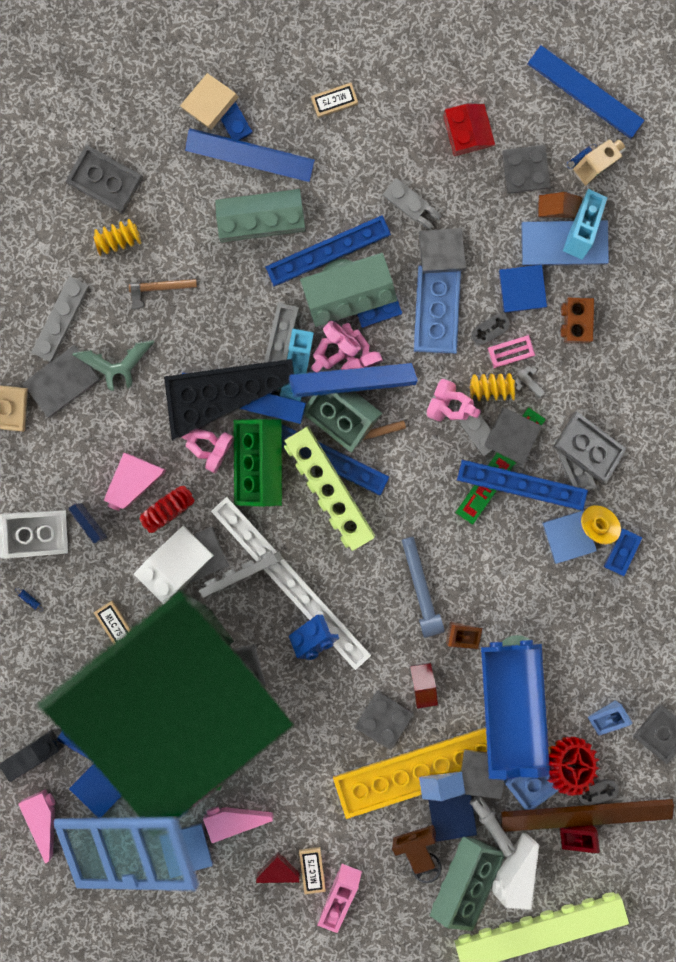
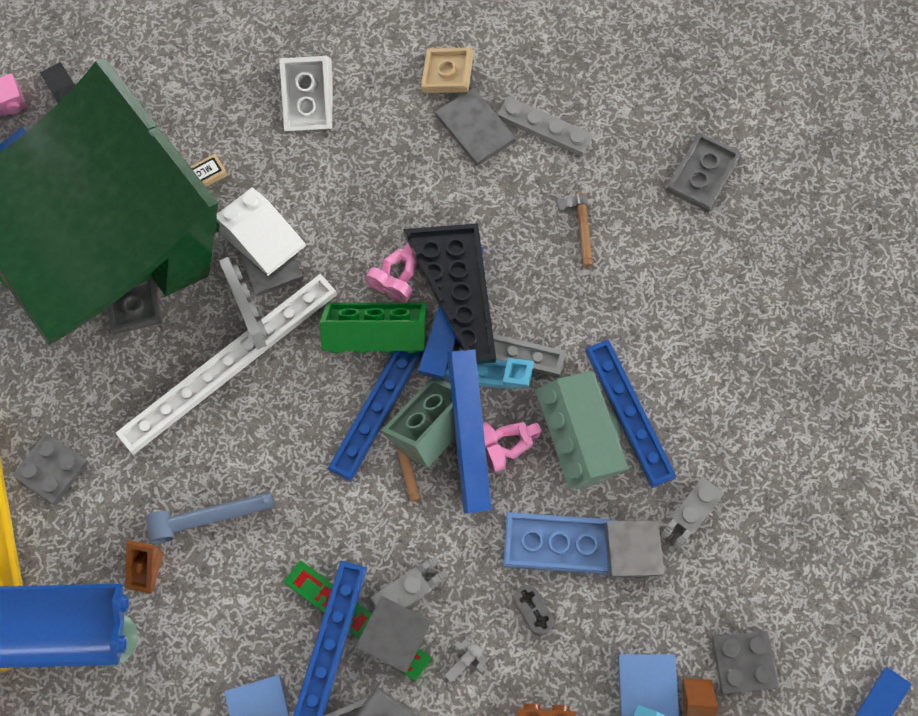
camera: 90 degrees right, 20 degrees down
(29, 599) = (236, 92): blue piece -> none
(87, 523) = (313, 143): dark blue tile -> none
(108, 369) = (488, 185): sand green piece -> none
(116, 237) = (637, 180): yellow piece -> none
(131, 481) = (360, 192): bright pink slope -> none
(166, 509) = (324, 223): red gear -> none
(209, 101) = (801, 278): tan tile -> none
(235, 123) = (782, 307): blue plate -> none
(249, 155) = (741, 325): blue tile -> none
(259, 215) = (669, 333): sand green slope -> none
(312, 638) = (157, 381): blue bracket -> none
(334, 100) = (815, 422): tile -> none
(335, 335) = (514, 424): bright pink piece -> none
(351, 539) = (333, 418): yellowish green brick -> none
(379, 314) = (553, 472): blue plate -> none
(424, 685) = (86, 517): slope -> none
(444, 393) = (434, 540): bright pink piece -> none
(468, 128) = (793, 586): red slope -> none
(492, 386) = (457, 610): yellow piece -> none
(493, 356) = (511, 660): bright pink tile -> none
(522, 288) = (587, 654): blue tile -> none

